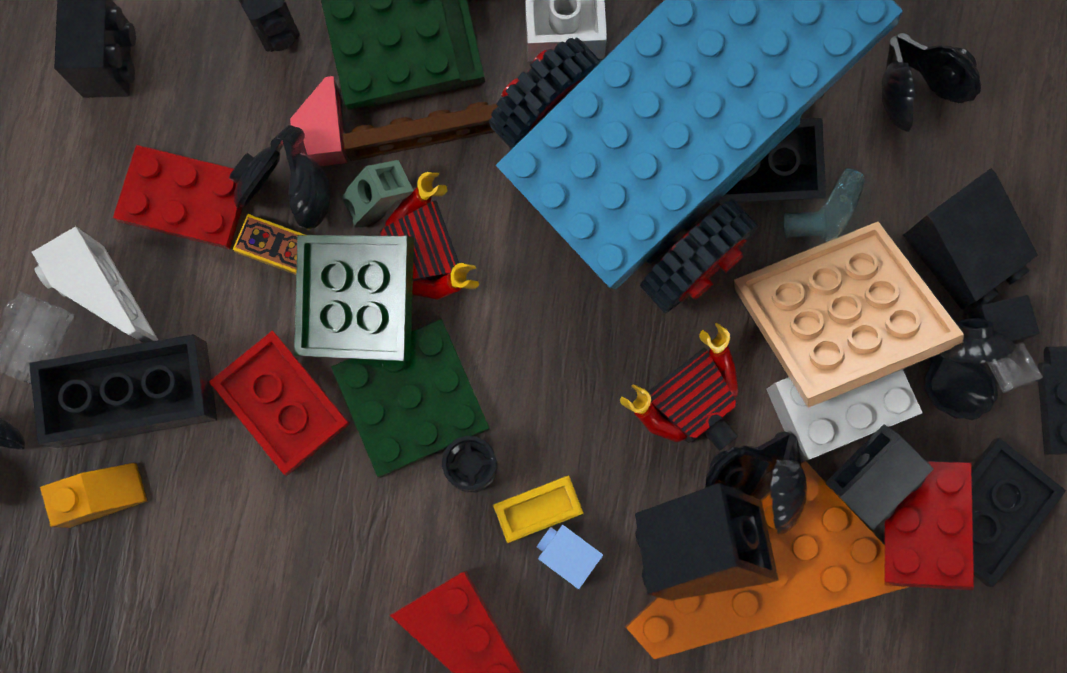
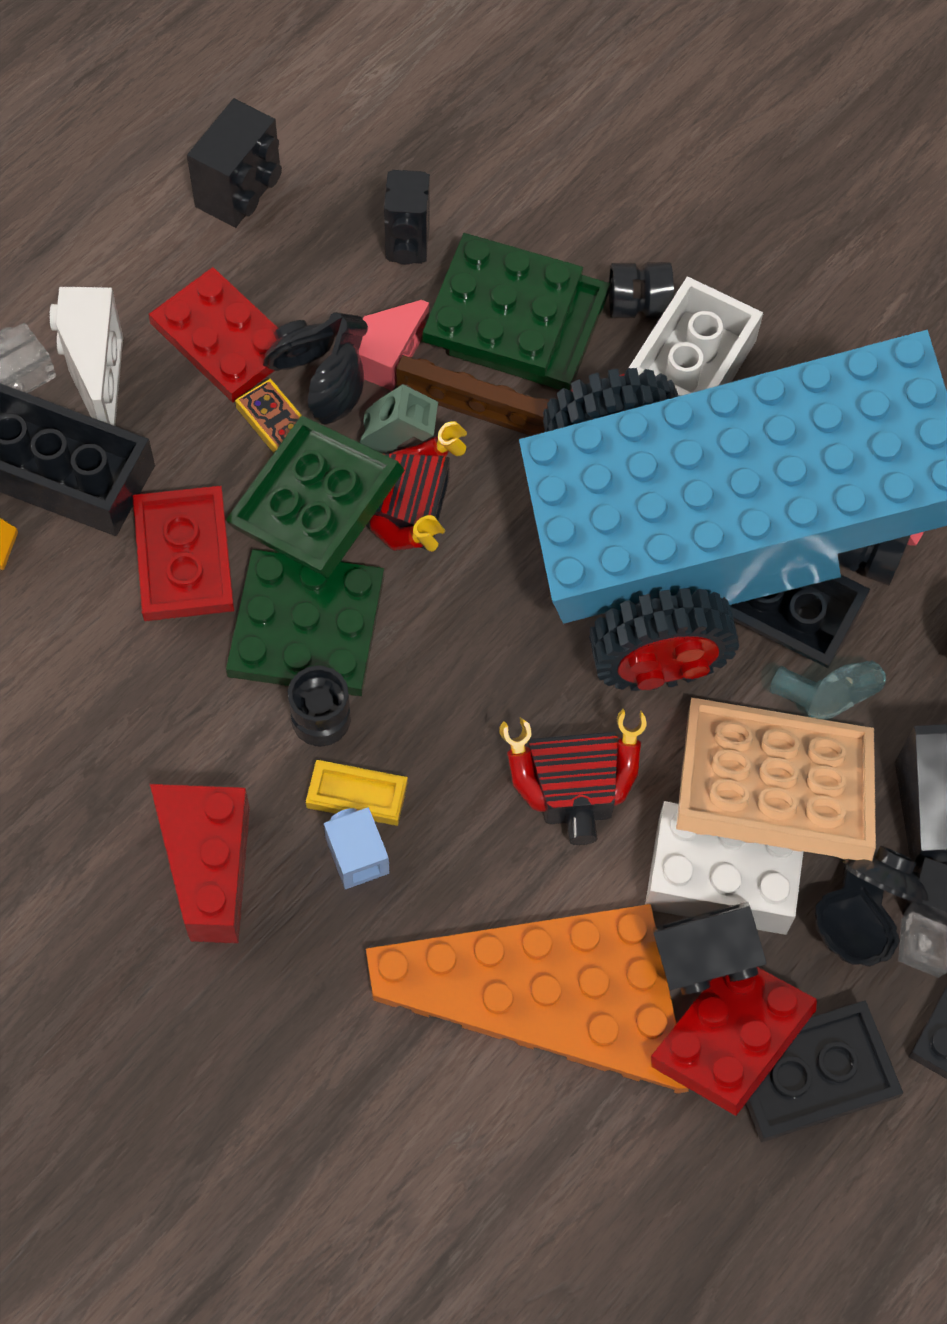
camera: 30 degrees right, 15 degrees down
(704, 544) = (495, 907): black slope -> none
(746, 467) = (596, 893): black animal -> none

